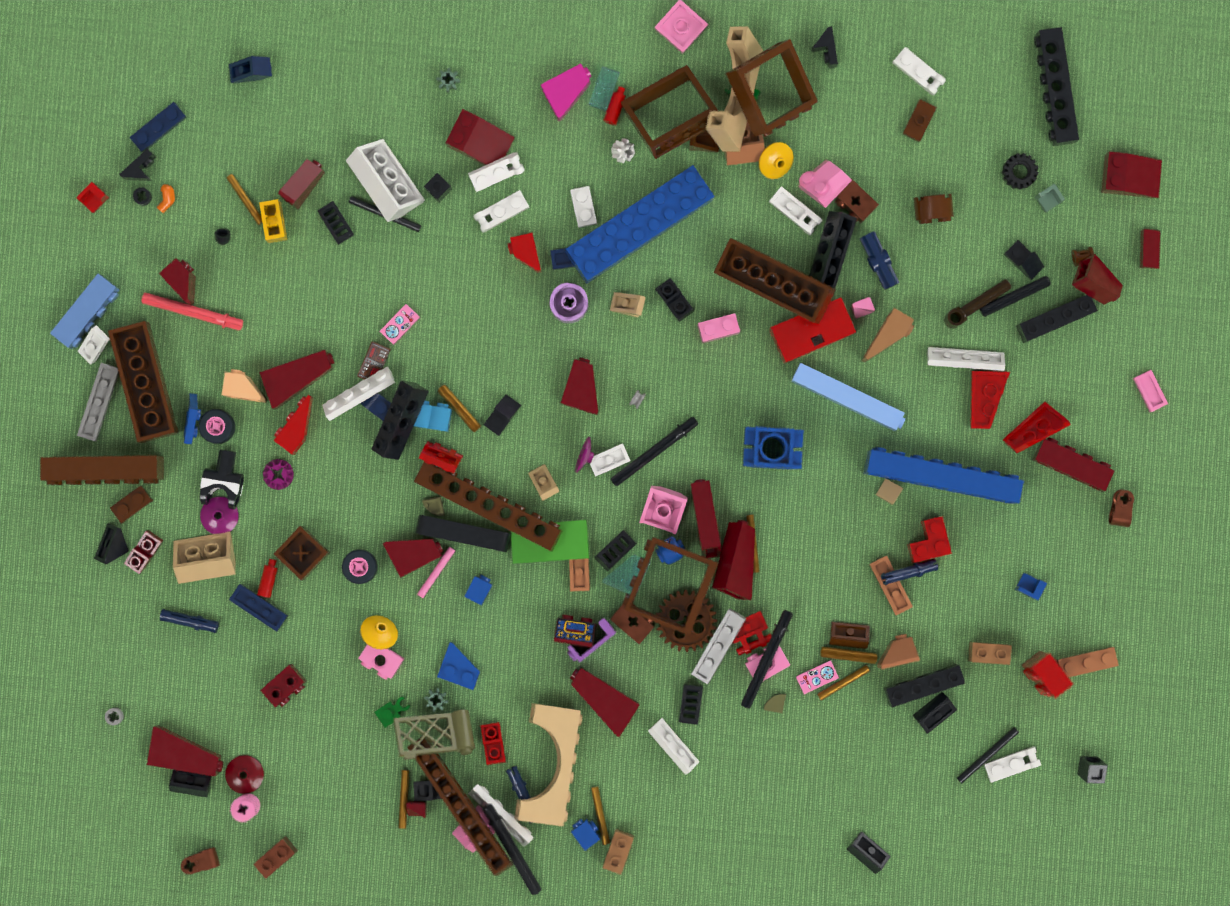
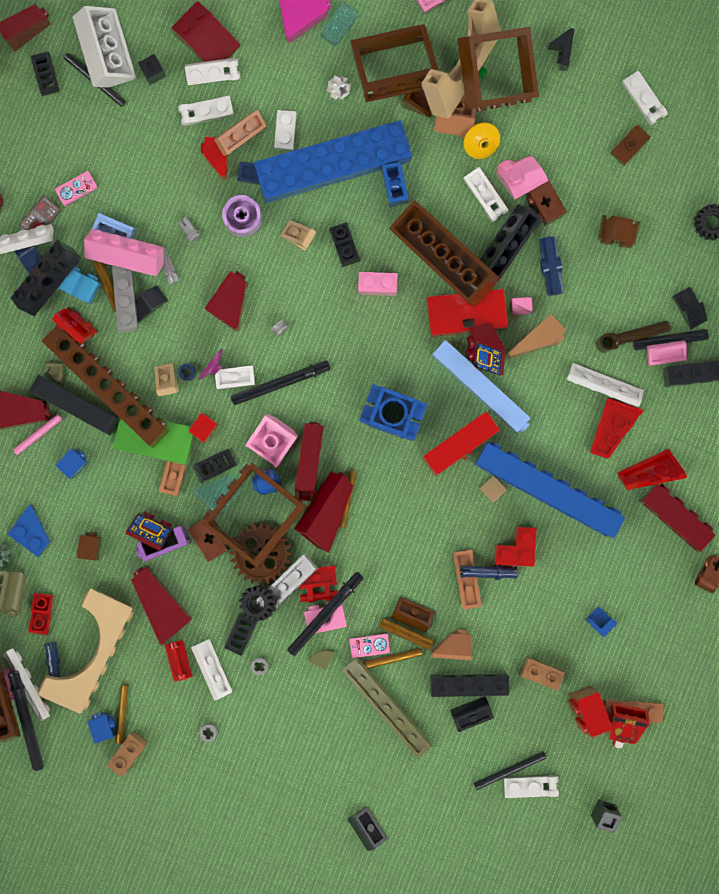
camera: 20 degrees right, 0 degrees up
(448, 355) = (112, 226): none -> light blue hinge
(466, 372) = (124, 252): none -> bright pink brick
(479, 414) = (124, 299): none -> light grey plate
(511, 372) = (169, 269): none -> light grey axle
(520, 664) = (89, 546): none -> reddish brown brick
(521, 331) = (189, 229): none -> light grey pin
(543, 223) = (240, 132): none -> nougat plate
(564, 463) = (191, 368): none -> dark blue bush
(594, 517) = (203, 428): none -> red panel
(615, 107) = (344, 44): red cylinder -> none
(638, 747) = (178, 660): none -> red hinge
(685, 812) = (204, 736): none -> light grey bush
(705, 228) = (394, 184): none -> blue brick
(709, 664) = (267, 597): none -> black tyre
(716, 723) = (259, 660): none -> light grey bush
(842, 360) = (486, 349): none -> dark red slope
(845, 458) = (460, 444): none -> red brick
(852, 731) = (387, 707): none -> olive plate
(1015, 310) = (666, 353): none -> bright pink tile
(1086, 676) = (627, 724): none -> red torso

